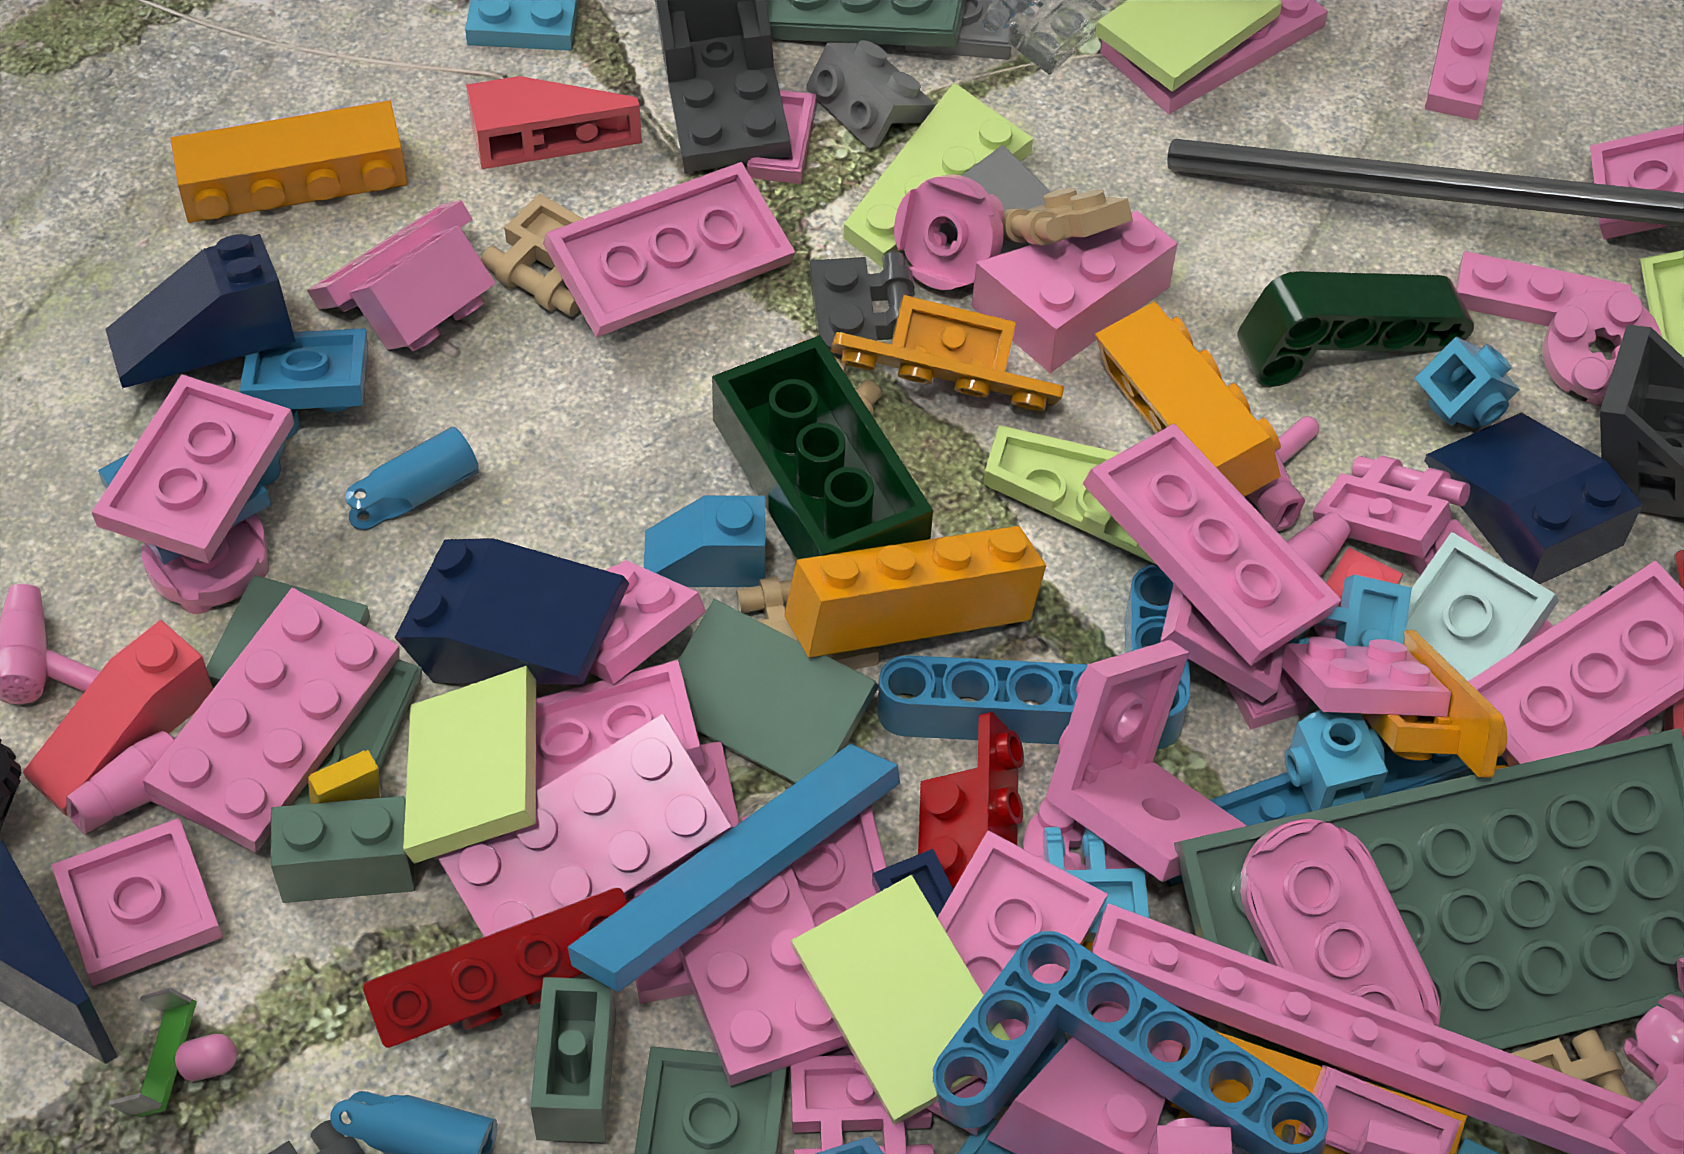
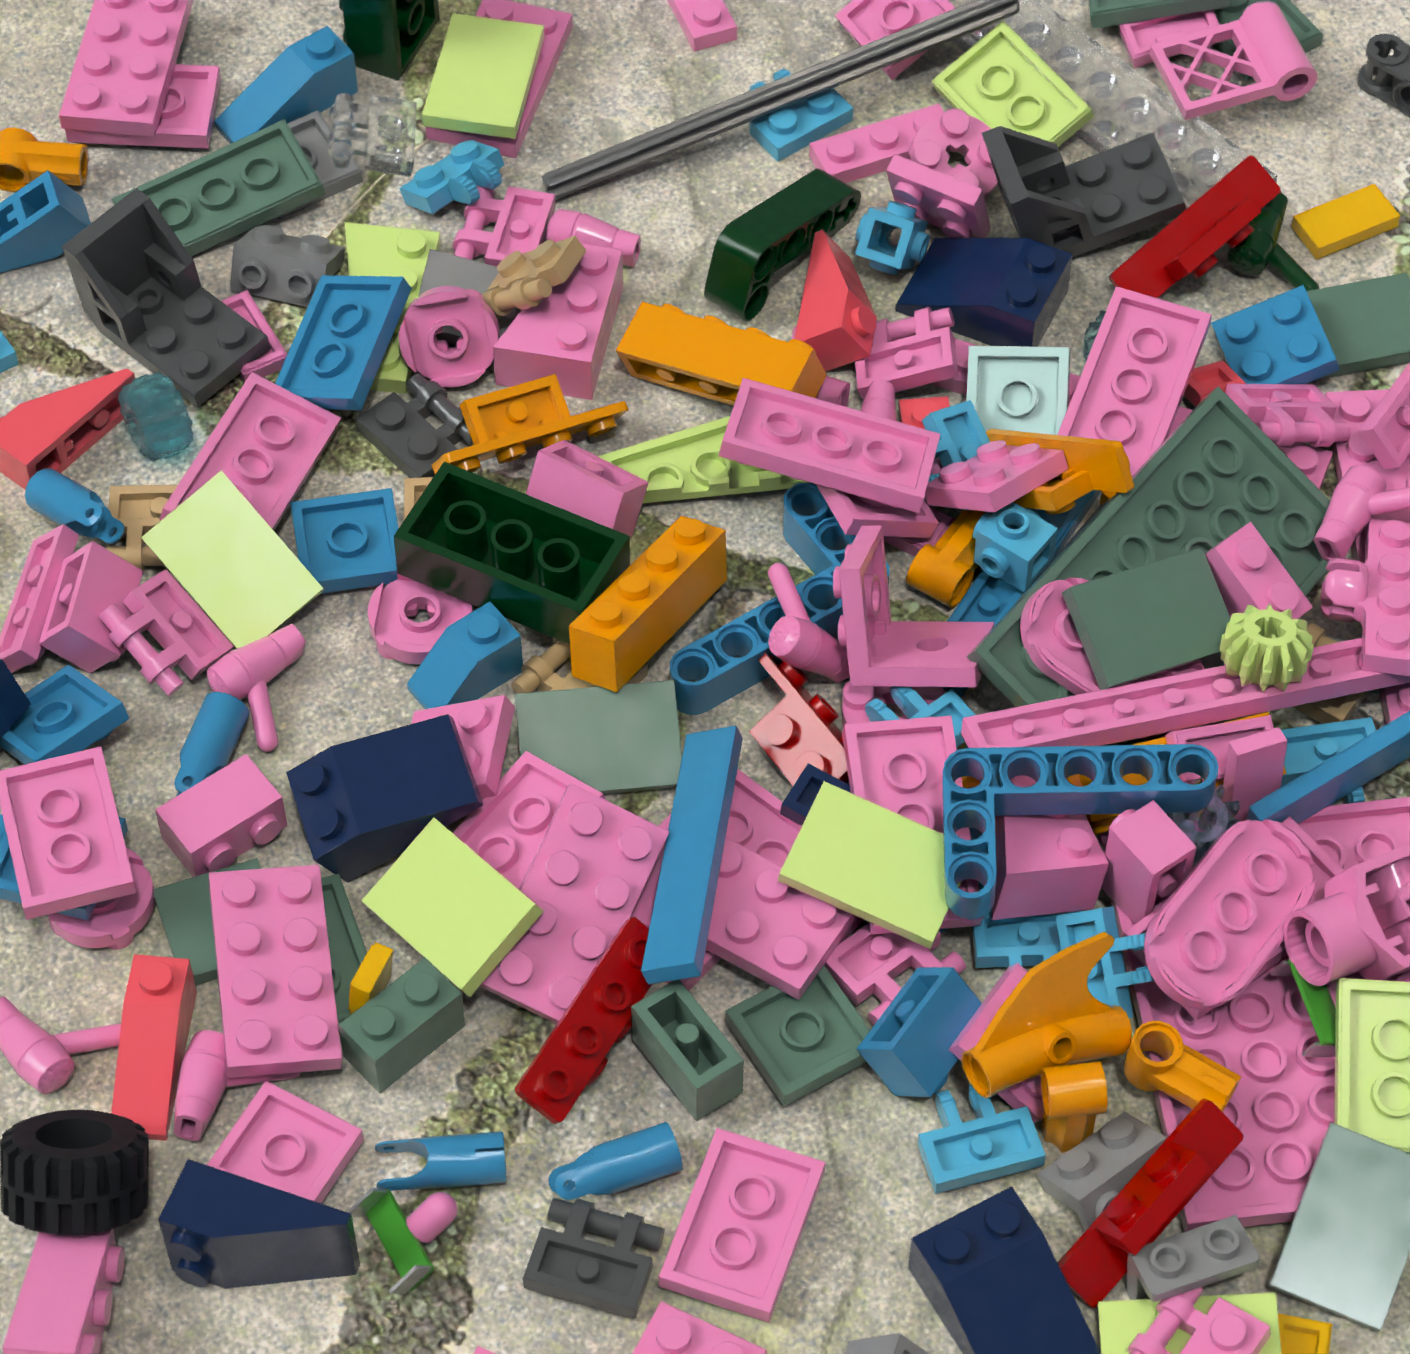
camera: 35 degrees left, 0 degrees up
(277, 1017) = (450, 1161): none -> dark azure piece
(365, 547) = (222, 817): none -> bright pink brick
(482, 349) = (175, 623): none -> bright pink plate
(489, 190) = (72, 505): none -> dark azure piece
(512, 429) = (248, 671): none -> bright pink piece
(570, 321) = (232, 562): none -> yellowish green tile
(627, 154) = (156, 416): none -> clear light blue gear
(681, 454) = (401, 637): none -> bright pink plate
(686, 354) = (347, 539): none -> dark azure plate
(851, 182) = (343, 339): none -> dark azure plate
(952, 451) = (587, 486): none -> bright pink brick
(1029, 717) = (800, 640): none -> bright pink piece
(1109, 93) = (455, 177): none -> medium azure hinge
(1117, 167) = (519, 224): none -> bright pink plate
(1173, 216) = (594, 232): none -> bright pink piece
(1255, 743) = (948, 566): none -> light orange piece
(1354, 418) = (835, 307): none -> coral slope
(1407, 930) = (1149, 618): none -> sand green tile
(1475, 228) = (800, 123): none -> medium azure hinge
(1509, 1043) = (1266, 647): none -> yellowish green gear
(1543, 372) = (939, 199): none -> bright pink plate
(1554, 966) = (1253, 575): none -> bright pink brick

